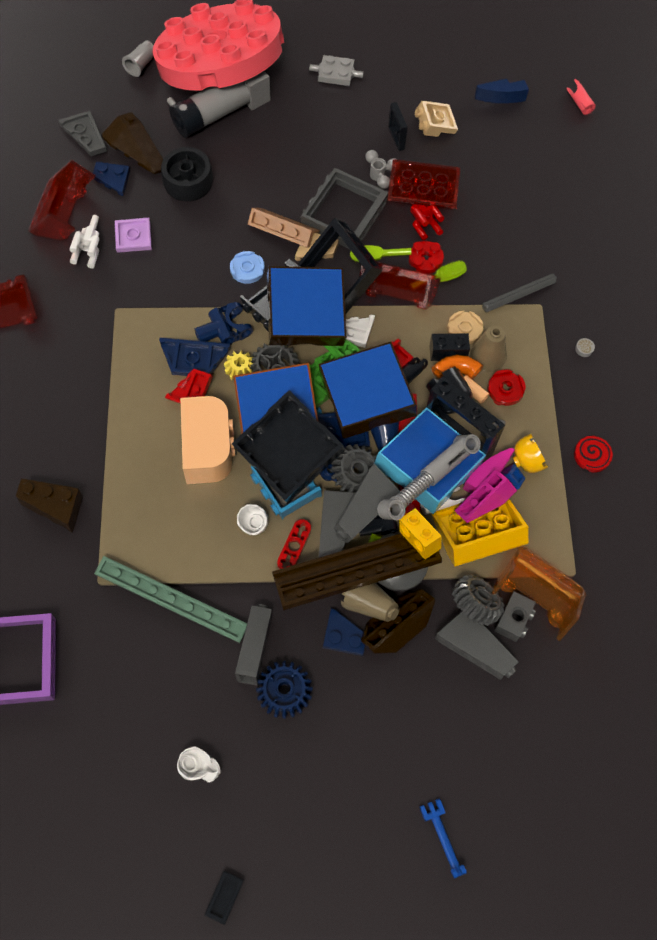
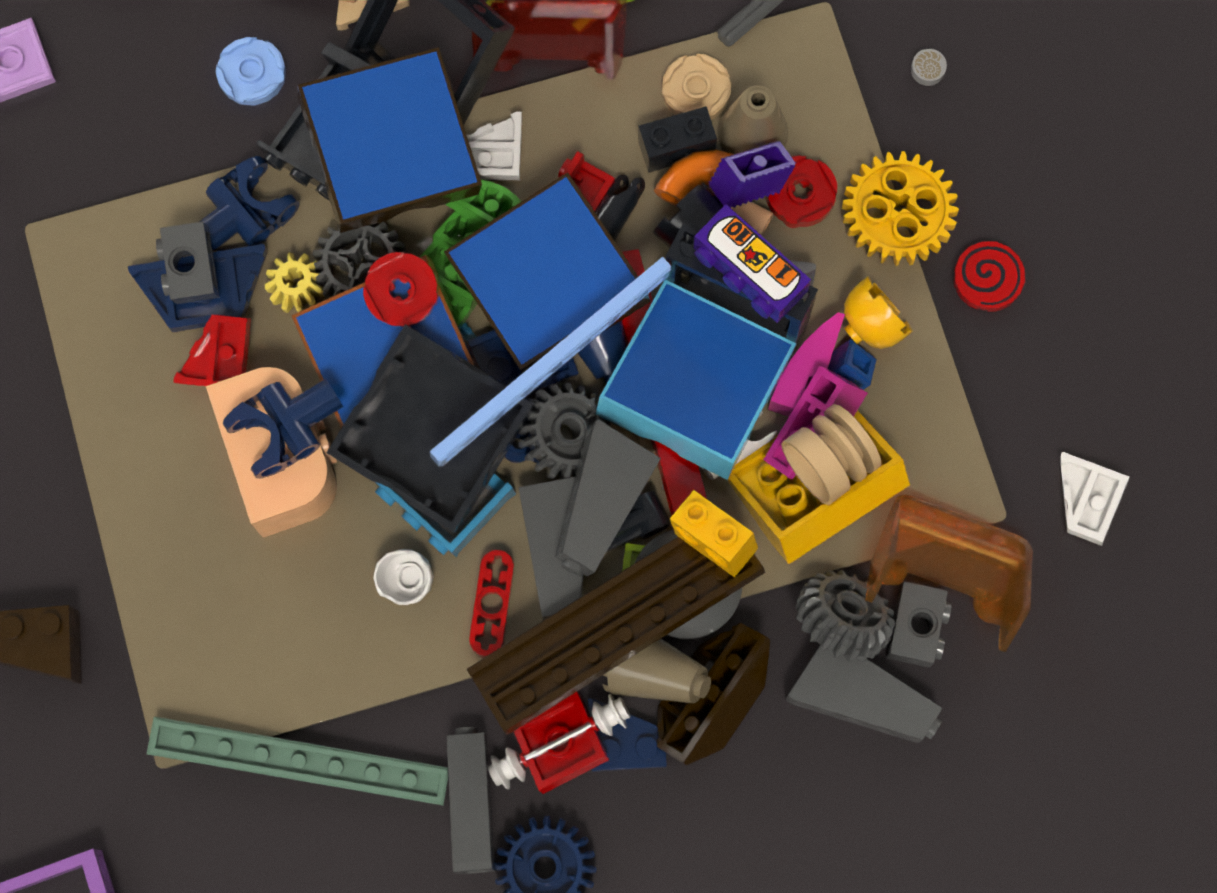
camera: 10 degrees left, 10 degrees up
(189, 330) = (201, 280): none -> dark grey brick
(214, 422) = (287, 421): none -> dark blue connector
(298, 366) = (380, 284): none -> red plate
(309, 626) = (560, 743): none -> red plate
(357, 426) = (550, 362): none -> light blue tile
(429, 476) = (705, 418): light grey piece -> none
(474, 401) = (750, 264): none -> brick
(483, 369) = (752, 174): none -> dark purple brick
(491, 511) = (832, 454): none -> tan wheel
(555, 408) = (917, 184): none -> yellow gear
(622, 576) = (1090, 497): none -> white wing

